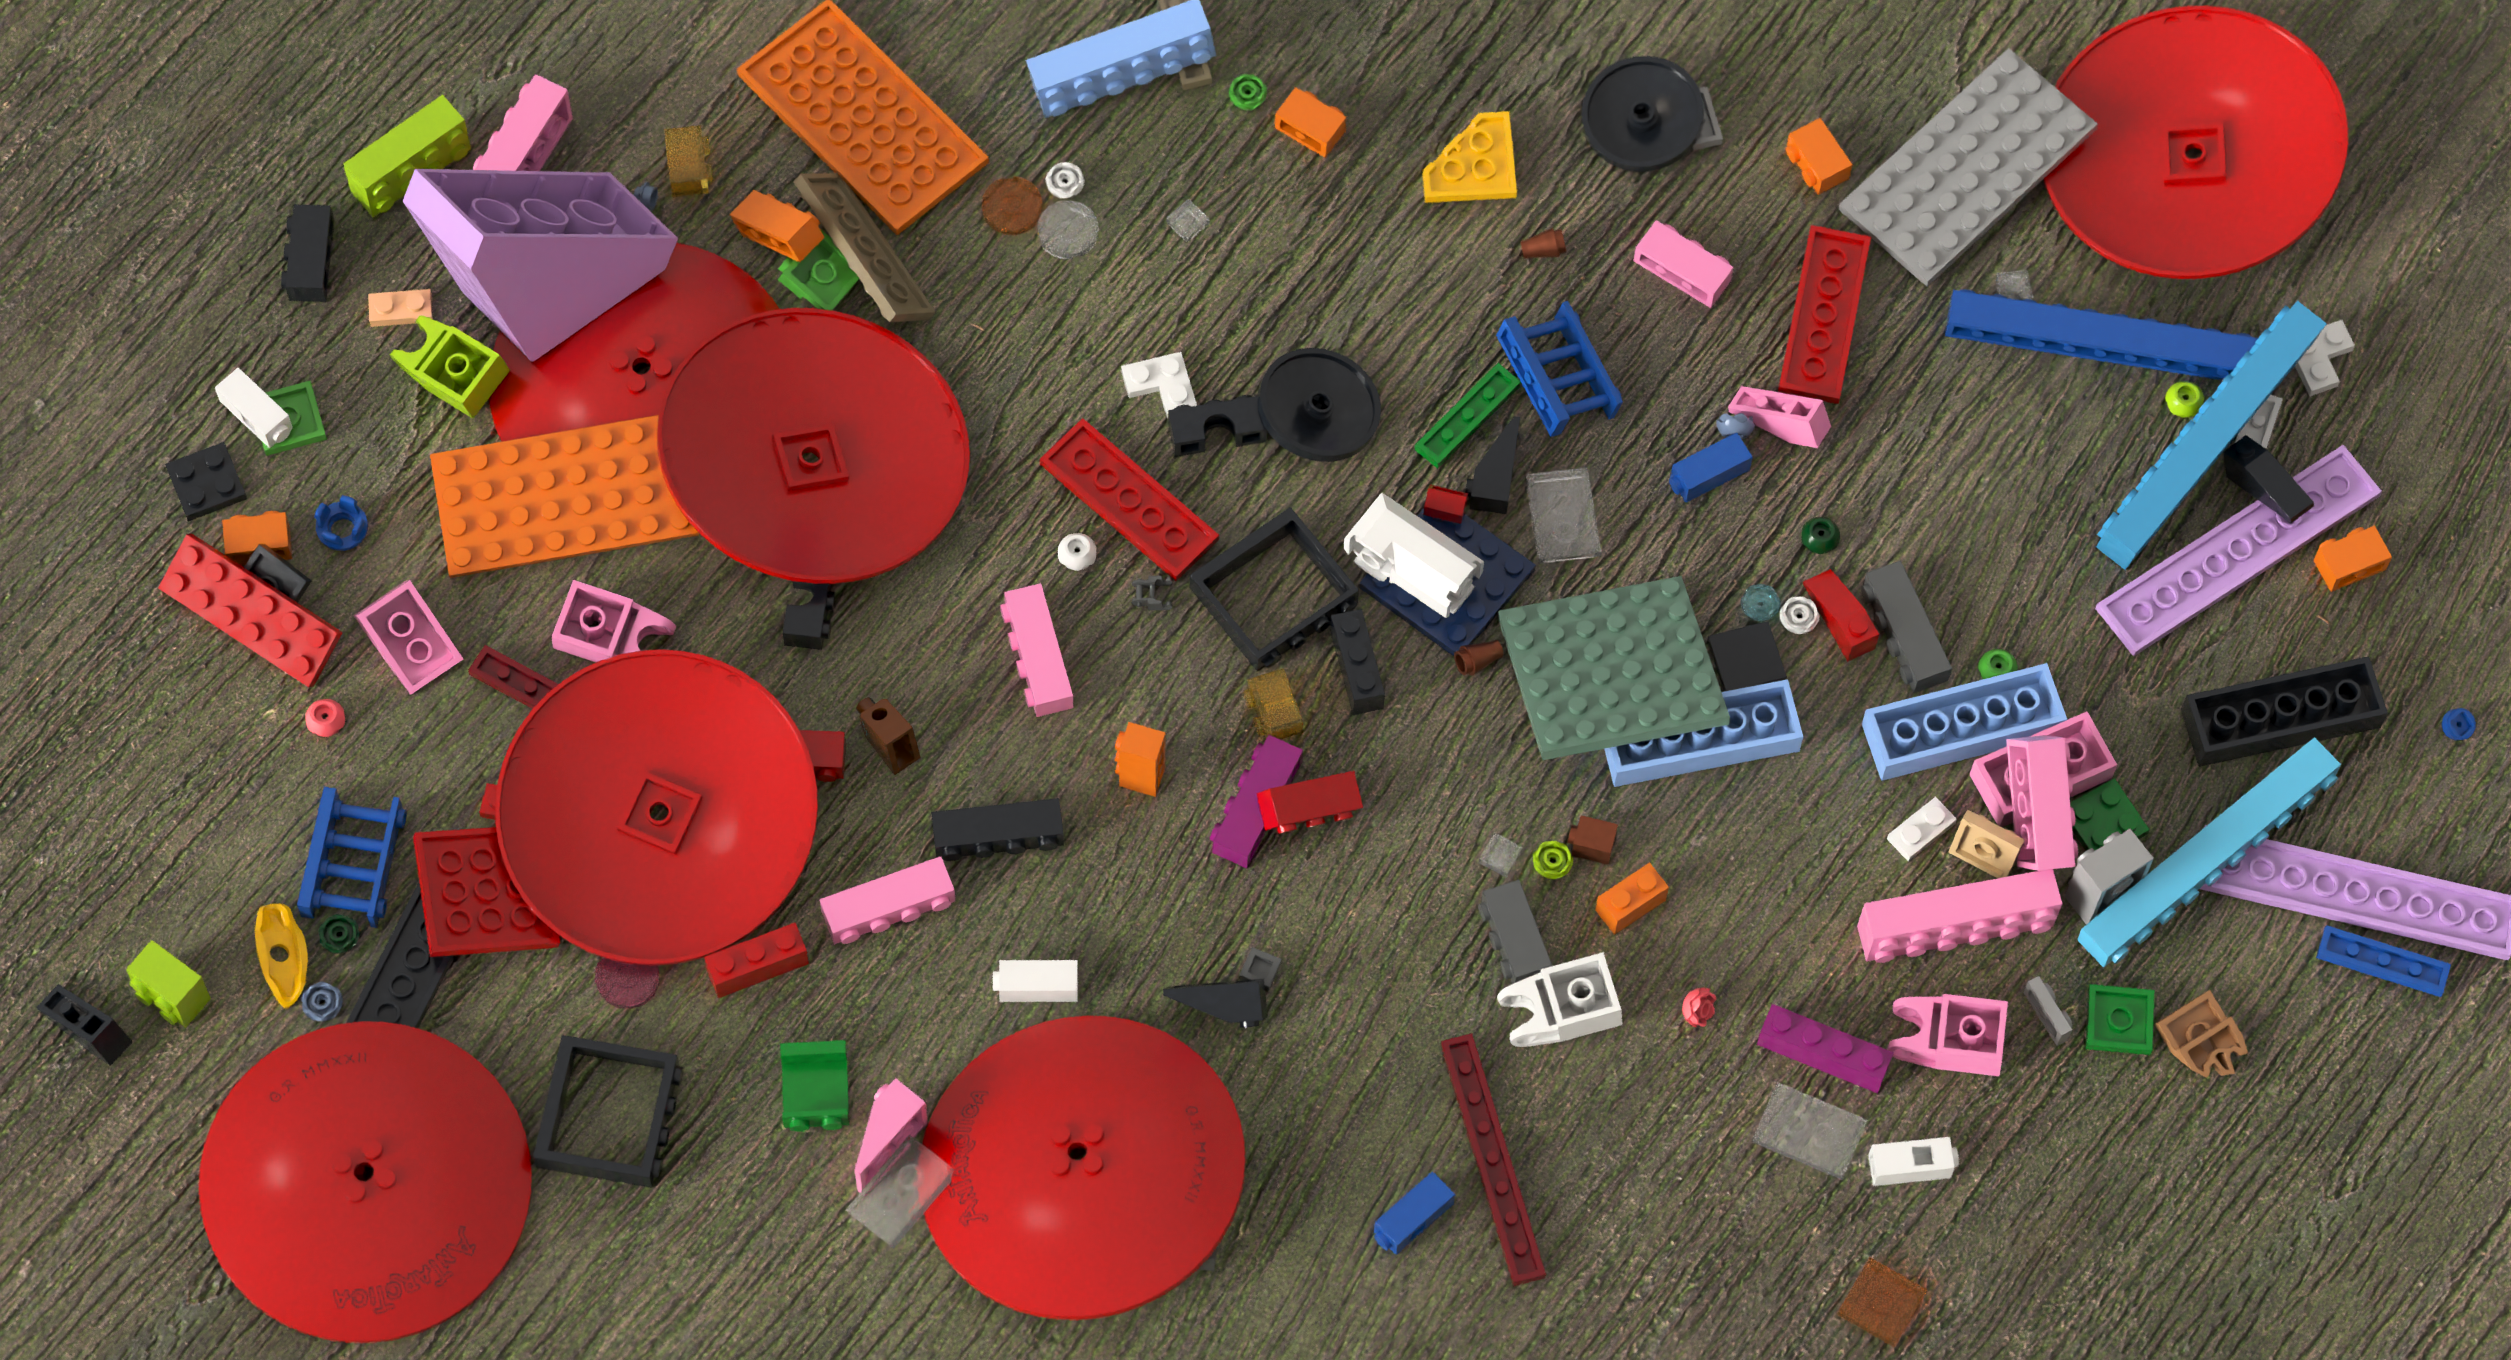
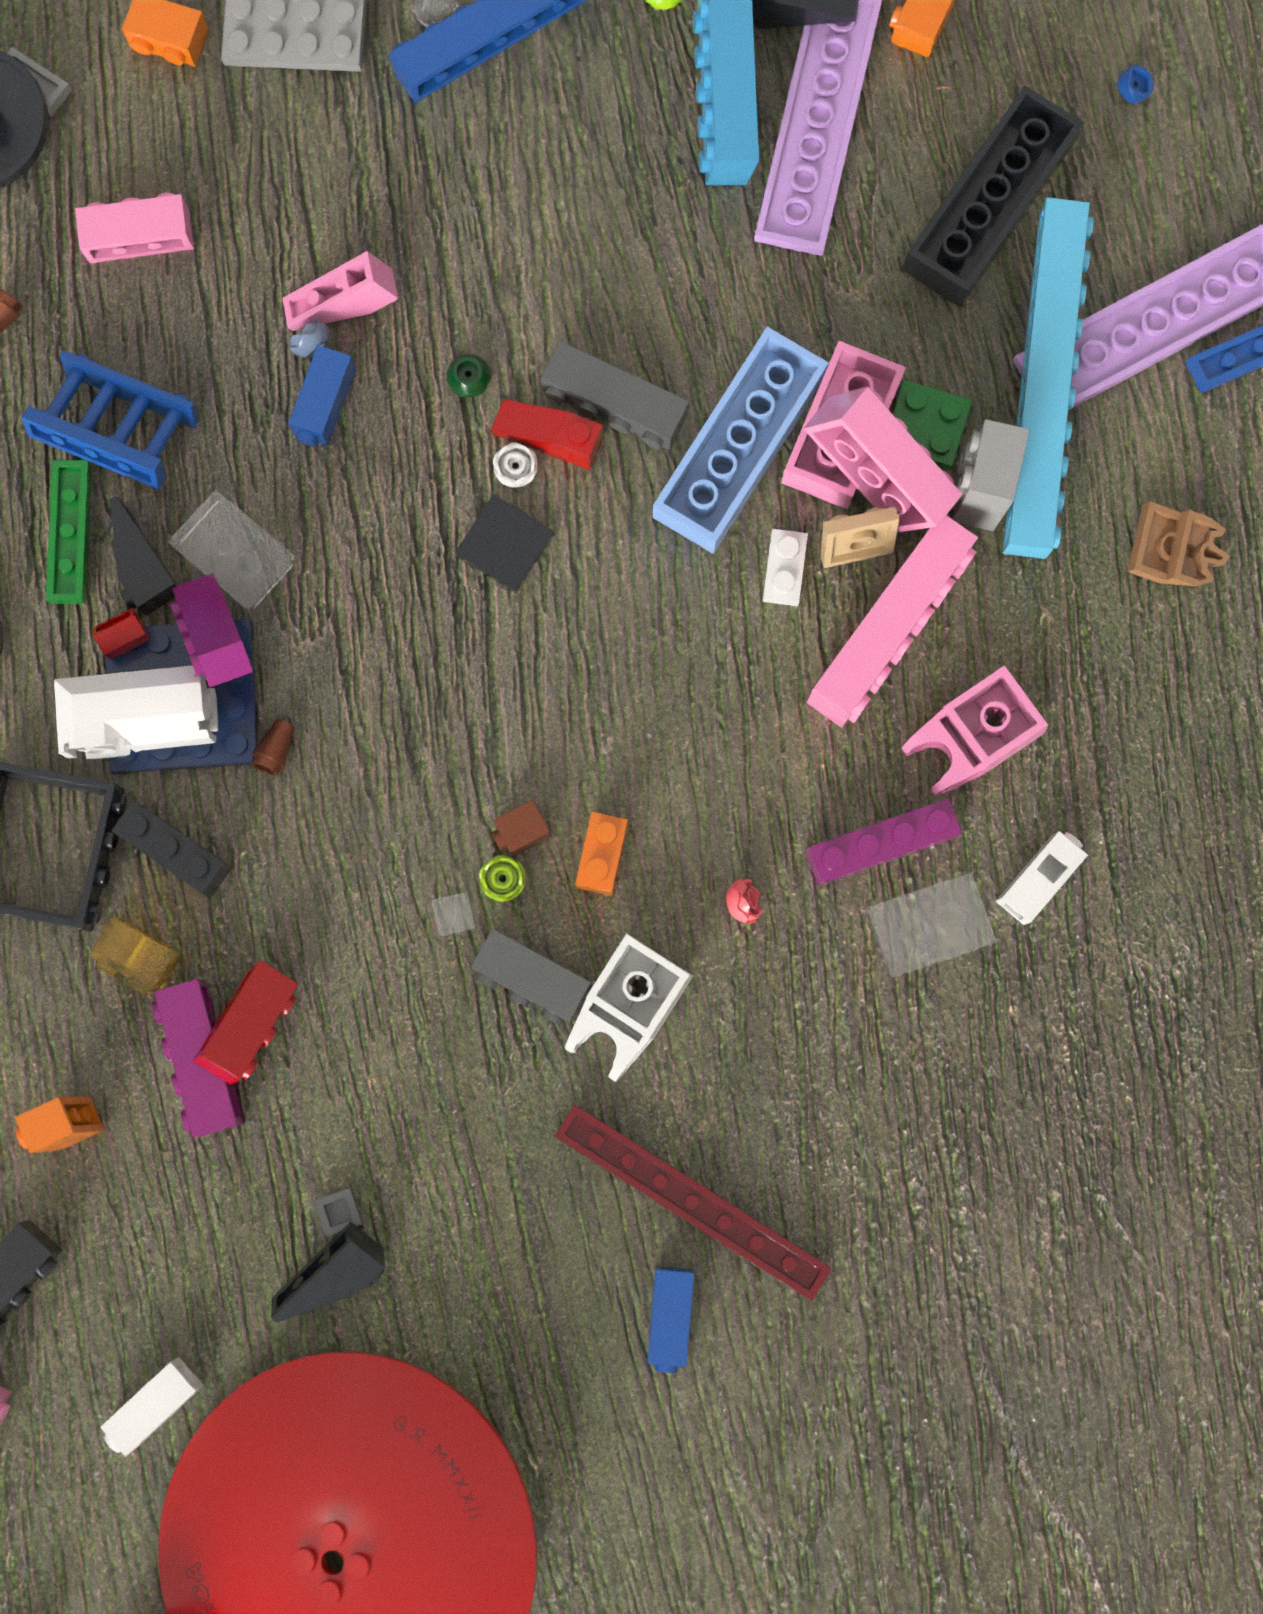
camera: 40 degrees left, 15 degrees up
(1506, 544) = (209, 631): none -> magenta brick
(1613, 668) = (402, 659): sand green plate -> none
(1760, 727) = (528, 649): light blue brick -> none
(1763, 594) = (469, 472): clear light blue plate -> none
(1824, 314) = (296, 171): red plate -> none
(1882, 1302) = (1124, 1024): clear orange tile -> none
(1994, 657) = (715, 374): bright green plate -> none
(2043, 1002) = (1046, 642): light grey plate -> none
(2120, 1019) = (1096, 592): green plate -> none

